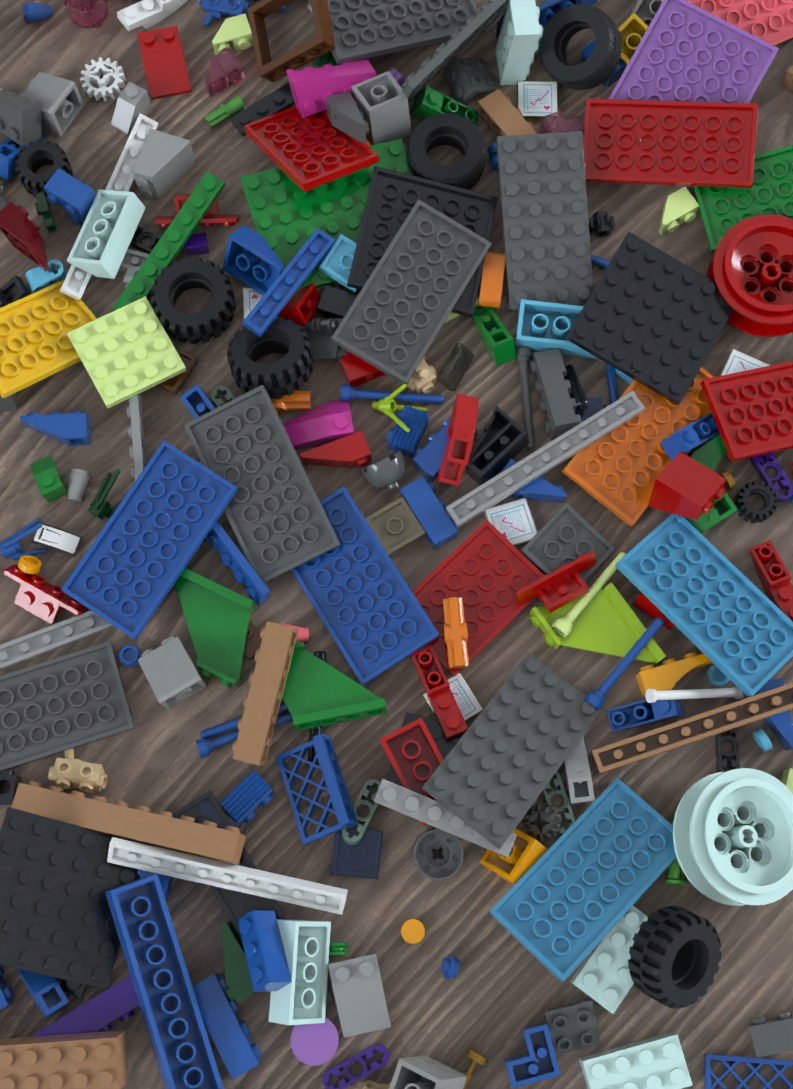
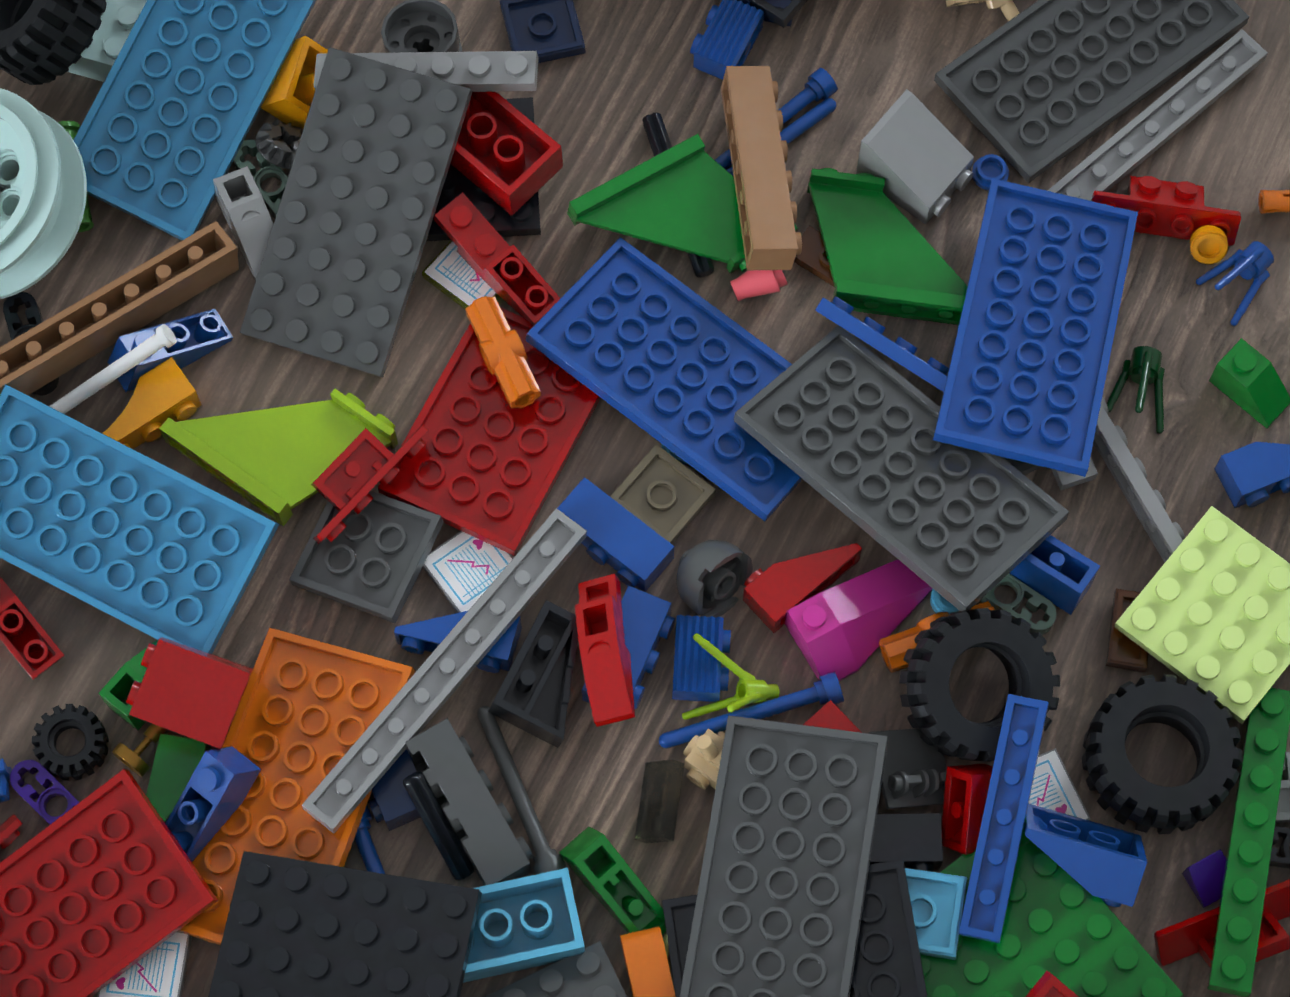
camera: 160 degrees right, 5 degrees down
(57, 539) = (1187, 297): white slope -> none
(77, 484) = (1200, 392): light grey cone -> none
(335, 786) = (611, 87): blue fence -> none
(361, 830) = (565, 50): sand green beam -> none
(563, 625) = (336, 421): yellowish green piece -> none
(597, 696) = (253, 342): blue piece -> none

